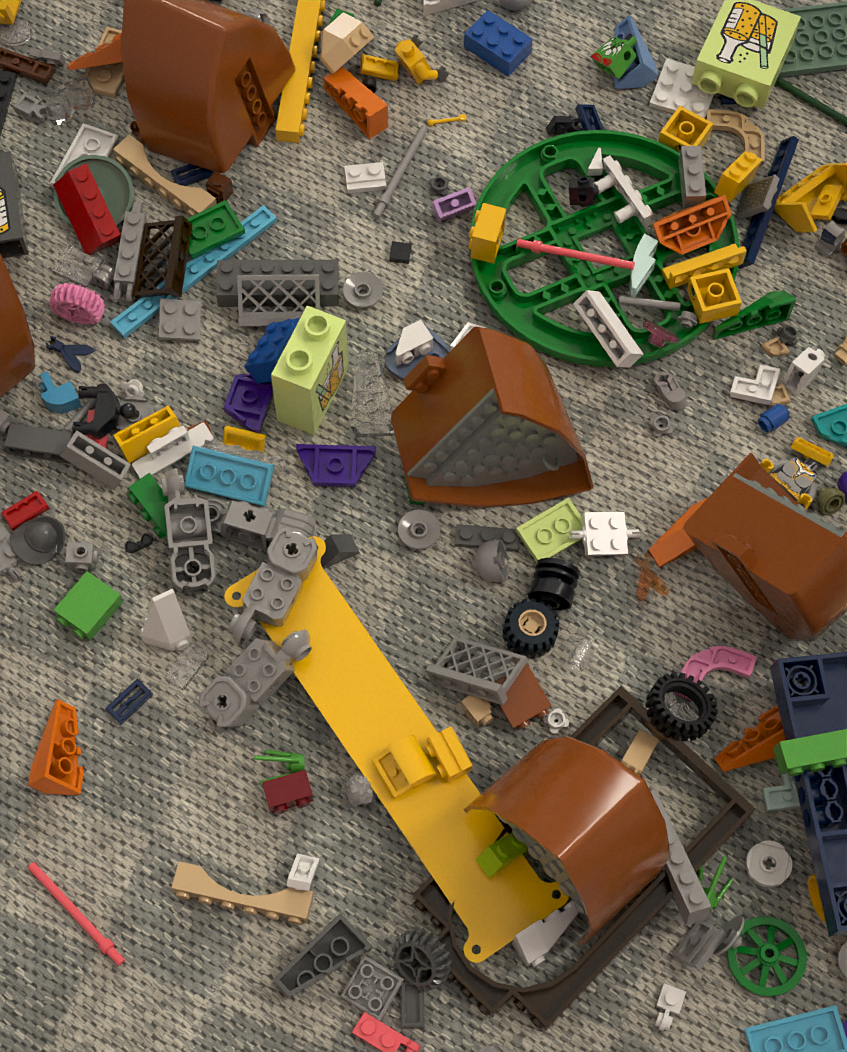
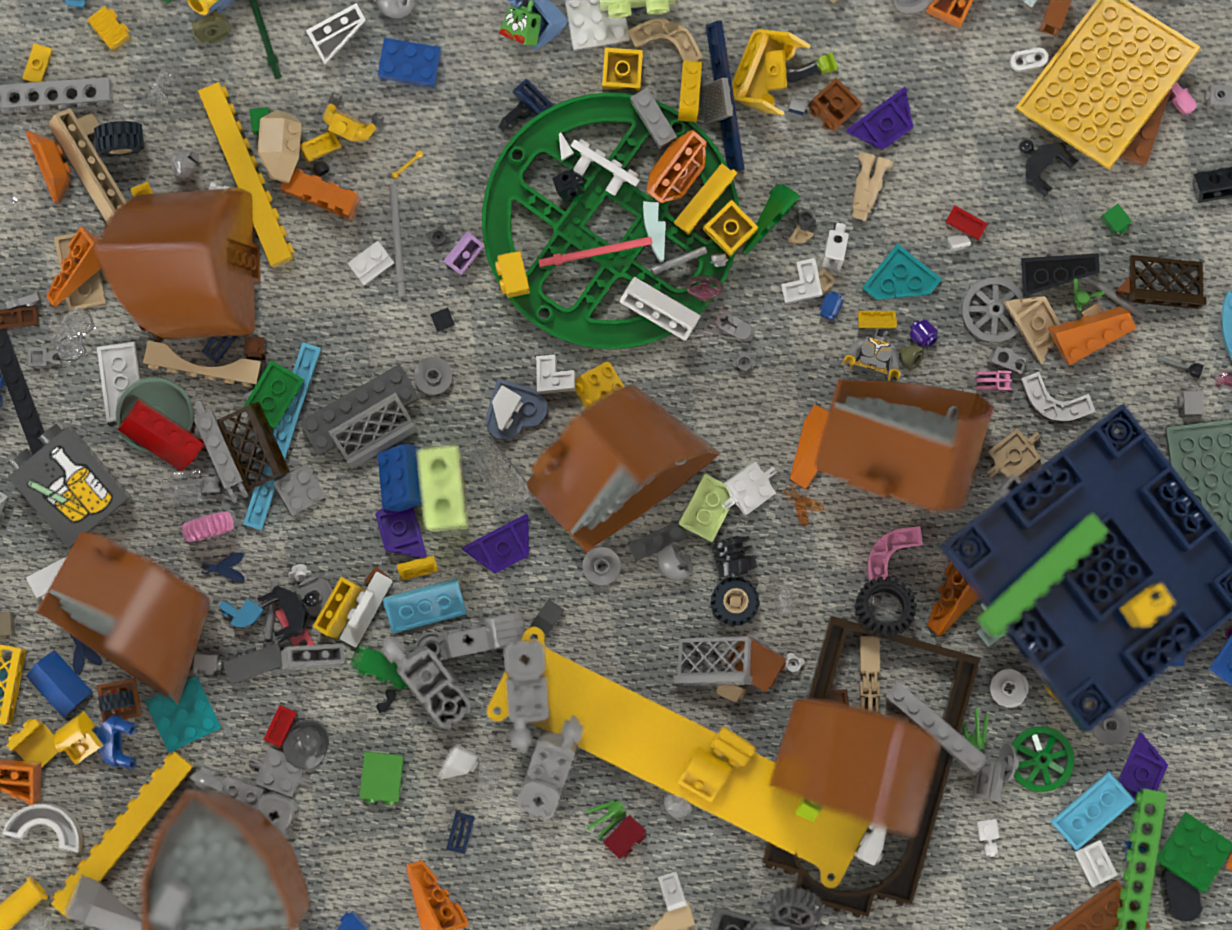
camera: 30 degrees left, 20 degrees up
(81, 556) = (344, 740): light grey brick -> none

